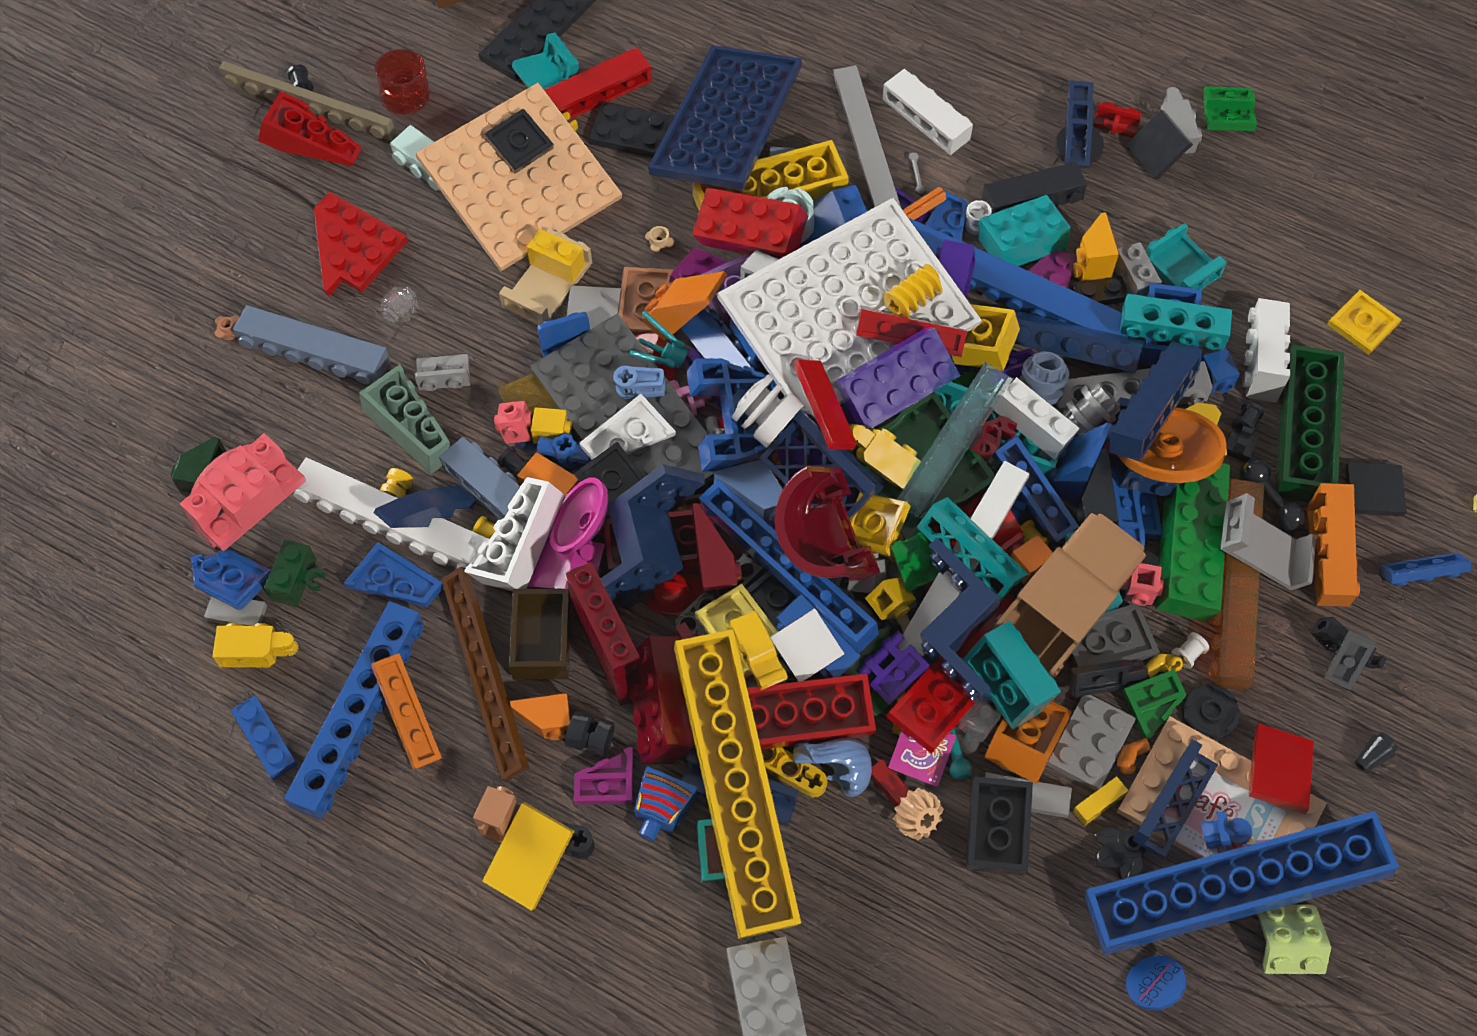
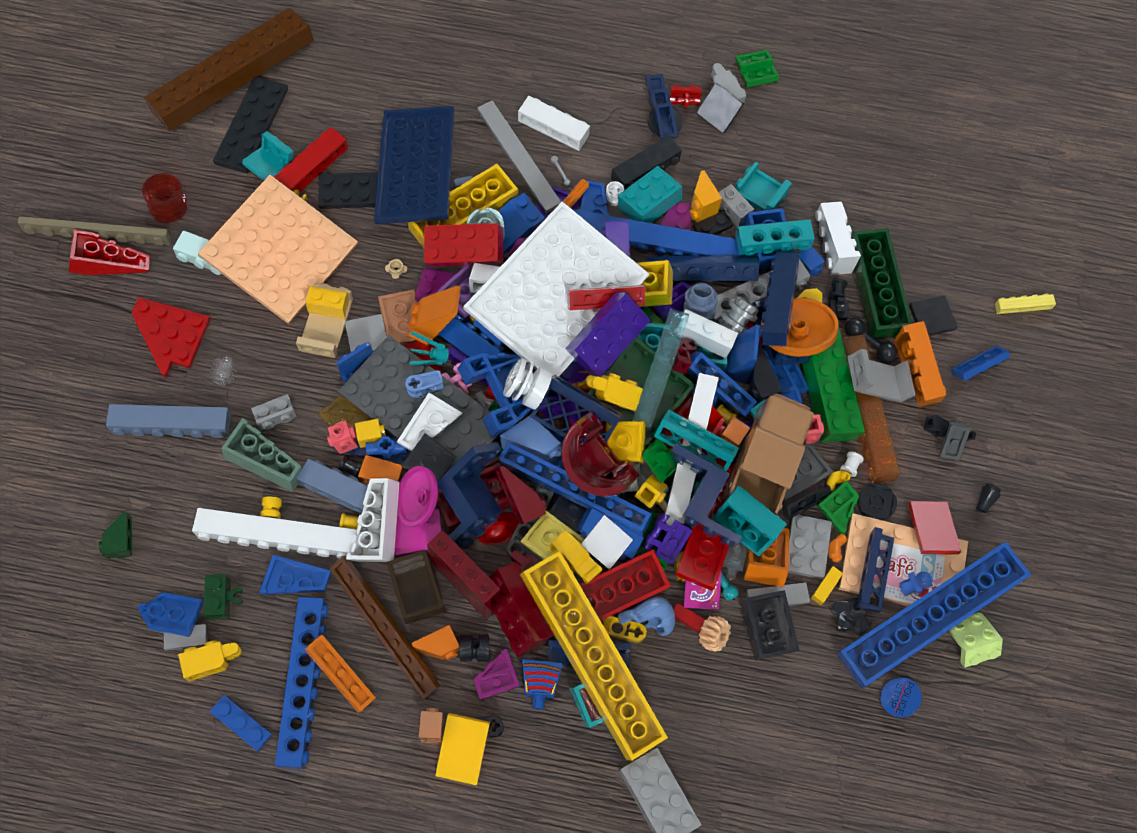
camera: 25 degrees left, 5 degrees up
(222, 322) = (95, 429): nougat plate -> none
(242, 488) = (160, 547): coral piece -> none
(300, 77) = (81, 212): black bush -> none
(421, 507) = (299, 520): dark blue slope -> none
(519, 141) = (271, 223): black tile -> none
(825, 404) = (566, 368): red tile -> none
(914, 291) = (599, 267): yellow piece -> none
(1364, 322) = (890, 200): yellow tile -> none

